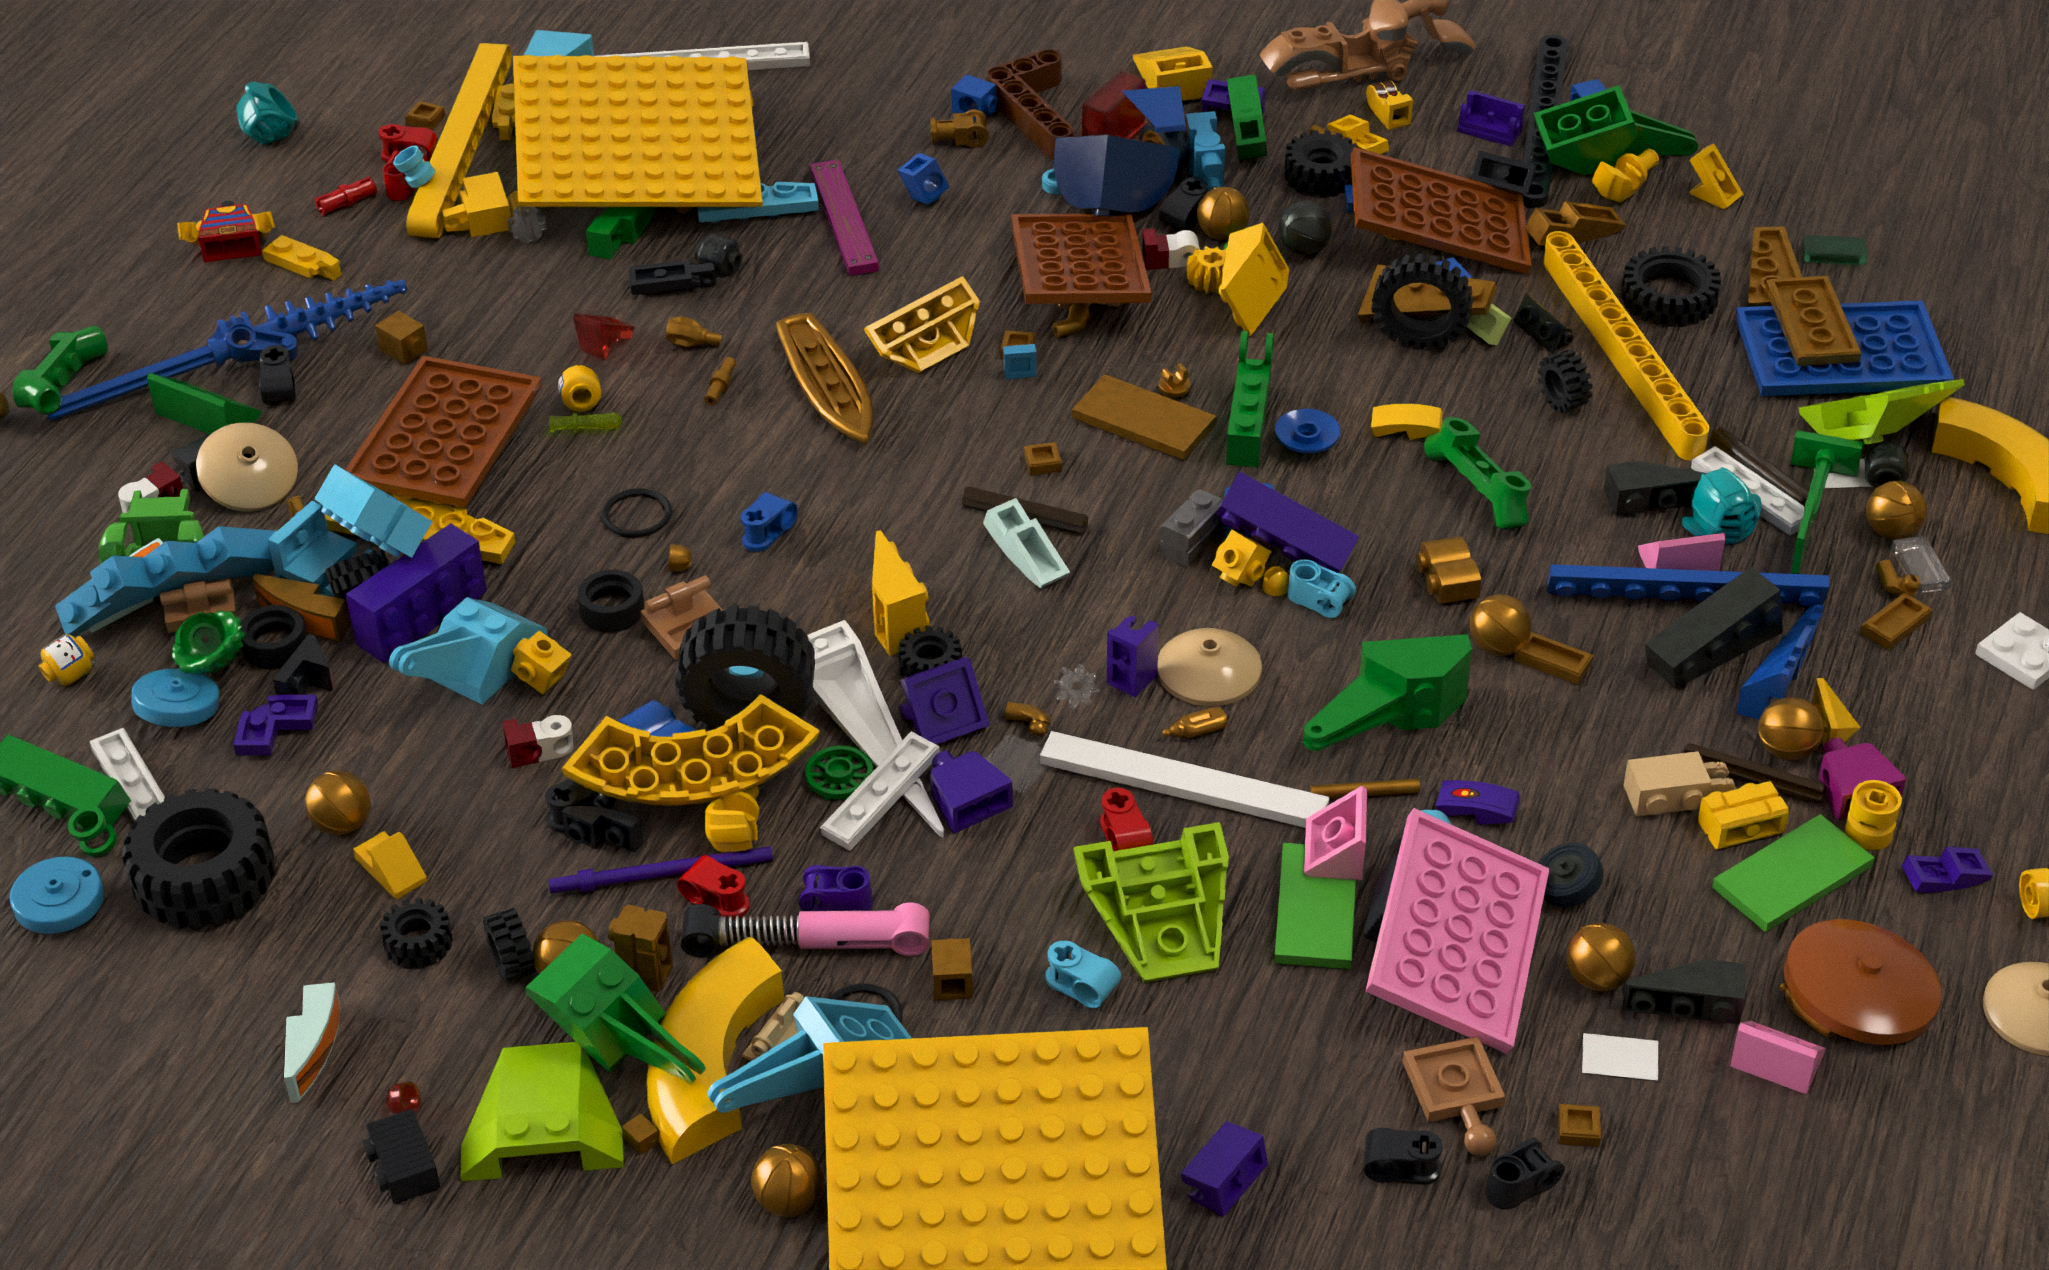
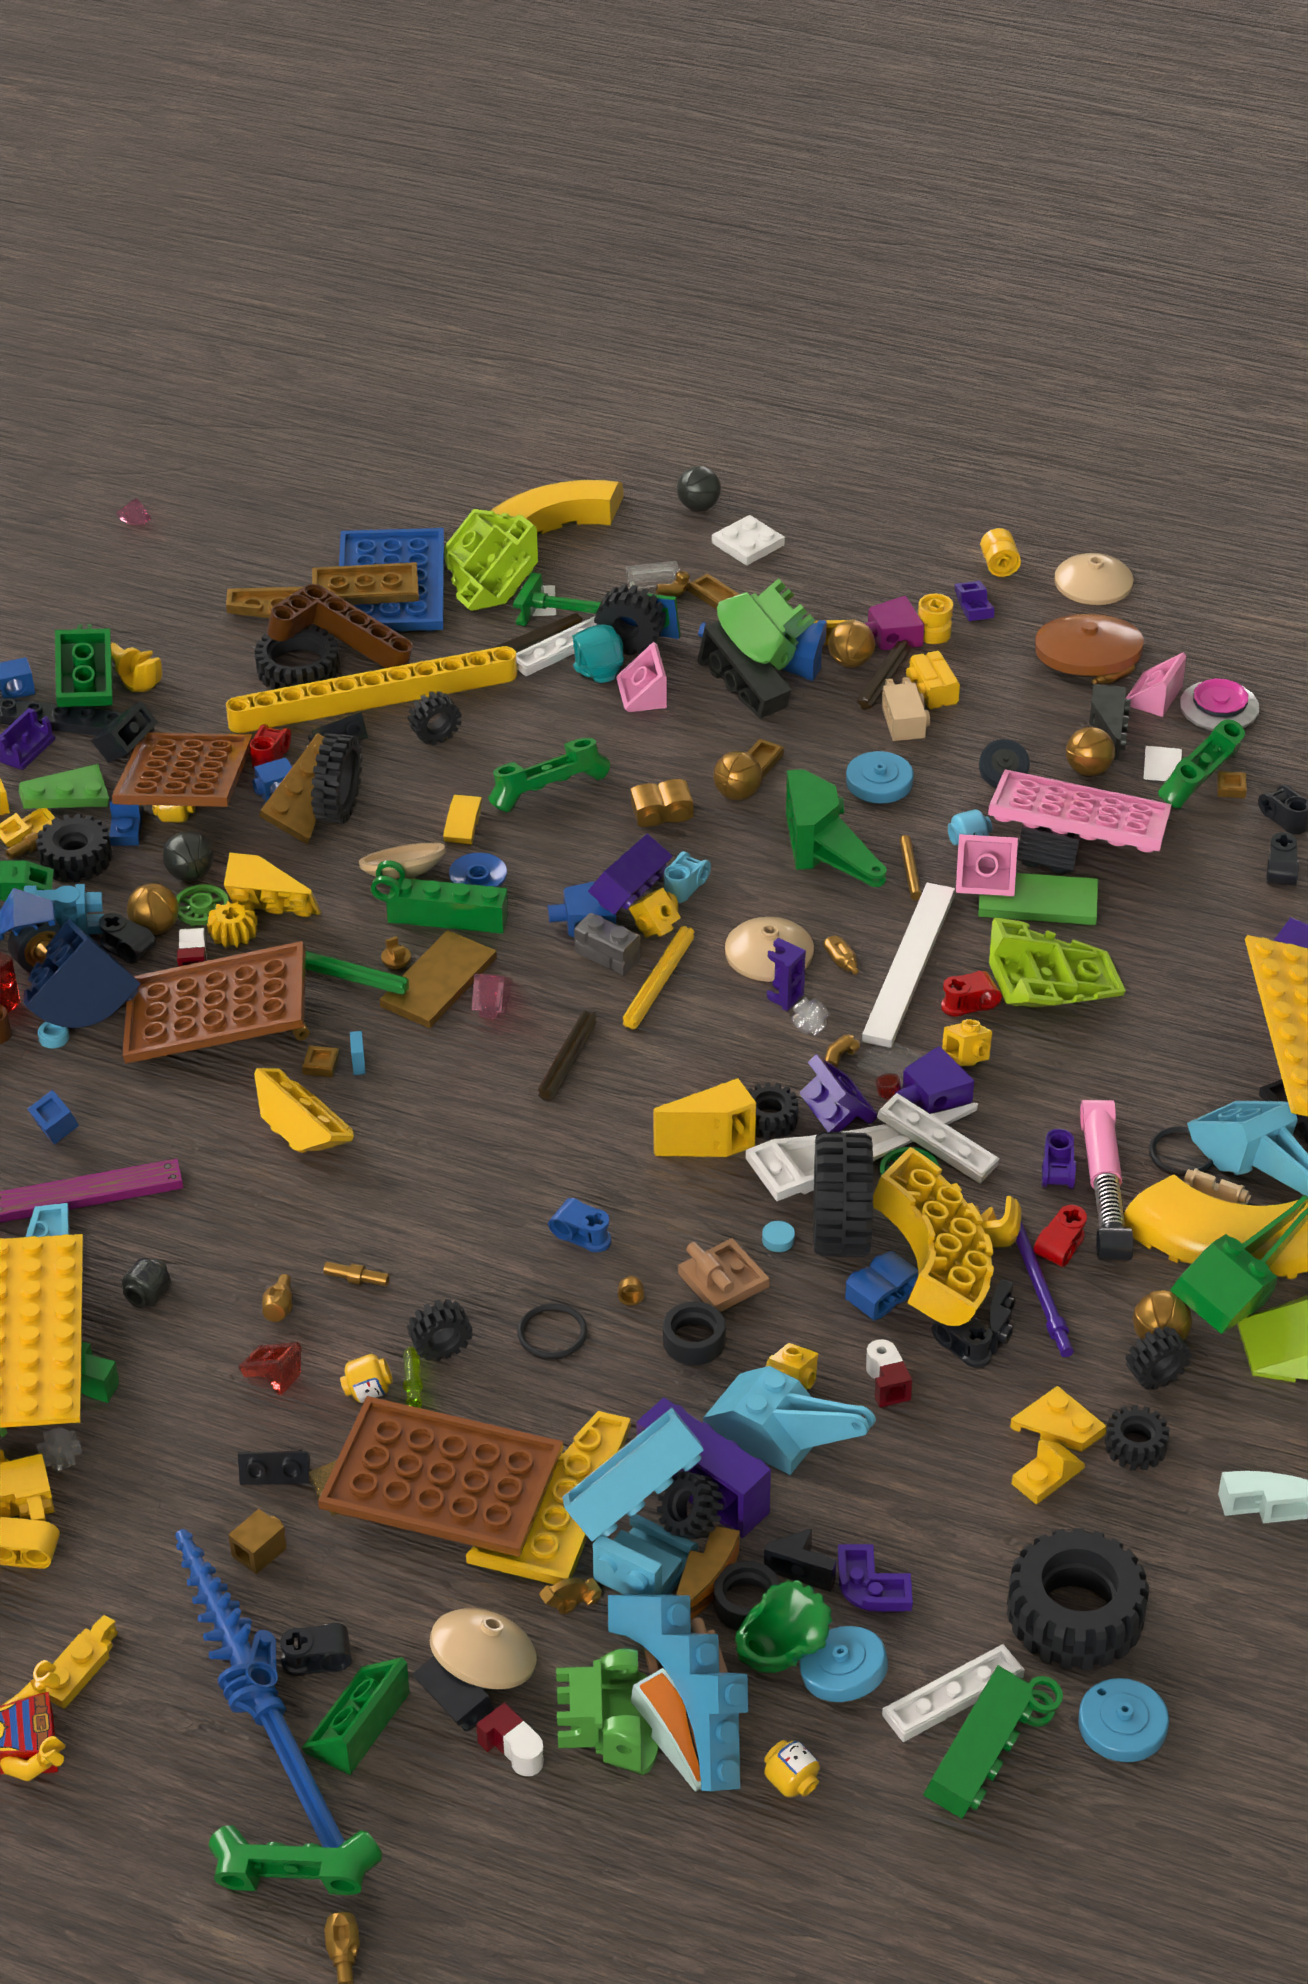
camera: 90 degrees left, 0 degrees up
(337, 802) = (994, 1500): pearl gold piece -> none
(458, 876) = (1060, 1421): none -> yellow wing
(492, 345) = (274, 1467): none -> black hinge
(623, 422) = (426, 1325): none -> black tyre
(643, 944) = (1154, 1262): pearl gold brick -> none
(670, 277) = (176, 1323): black hinge -> none
(827, 376) = (358, 1191): pearl gold piece -> none
(952, 969) = (1136, 1090): pearl gold brick -> none
(965, 745) = (887, 1085): none -> clear red hinge
(1025, 543) = (619, 1051): light aqua slope -> none
(1026, 812) = (967, 1042): none -> yellow brick
(1042, 458) = (492, 1045): pearl gold tile -> none
(1084, 976) = (1134, 1020): medium azure piece -> none
(1112, 446) = (490, 994): none -> clear pink slope
(1144, 346) = (356, 973): none -> green axle
(1152, 575) = (658, 977): none -> yellow axle
(1314, 369) = (414, 858): none -> tan dish
(1411, 144) = (66, 790): none -> bright green wing
(1456, 1082) = (1212, 835): medium nougat plate -> none
(1486, 801) = (924, 808): dark purple slope -> none
(1507, 273) = (269, 745): none -> red piece
(1527, 757) = (879, 777): none -> dark azure wheel
(1579, 220) = (197, 705): pearl gold slope -> none
(1633, 1095) = (1202, 763): none -> green plate
(1648, 487) = (564, 691): pearl dark grey slope -> none
(1673, 583) = (684, 687): blue plate -> none
(1717, 181) = (151, 623): yellow slope -> none
(1737, 274) = (343, 620): none -> reddish brown beam
(1761, 1128) = (1218, 700): none -> piece
(1774, 613) = (761, 621): none -> bright green piece
(1777, 520) = (637, 606): none -> black tyre
(1793, 872) = (984, 668): bright green tile -> none
(1834, 249) = (253, 570): clear green tile -> none
(1886, 463) = (551, 572): pearl dark grey head -> none
(1896, 510) = (605, 569): pearl gold piece -> none
(1917, 156) = (134, 513): none -> clear pink tile

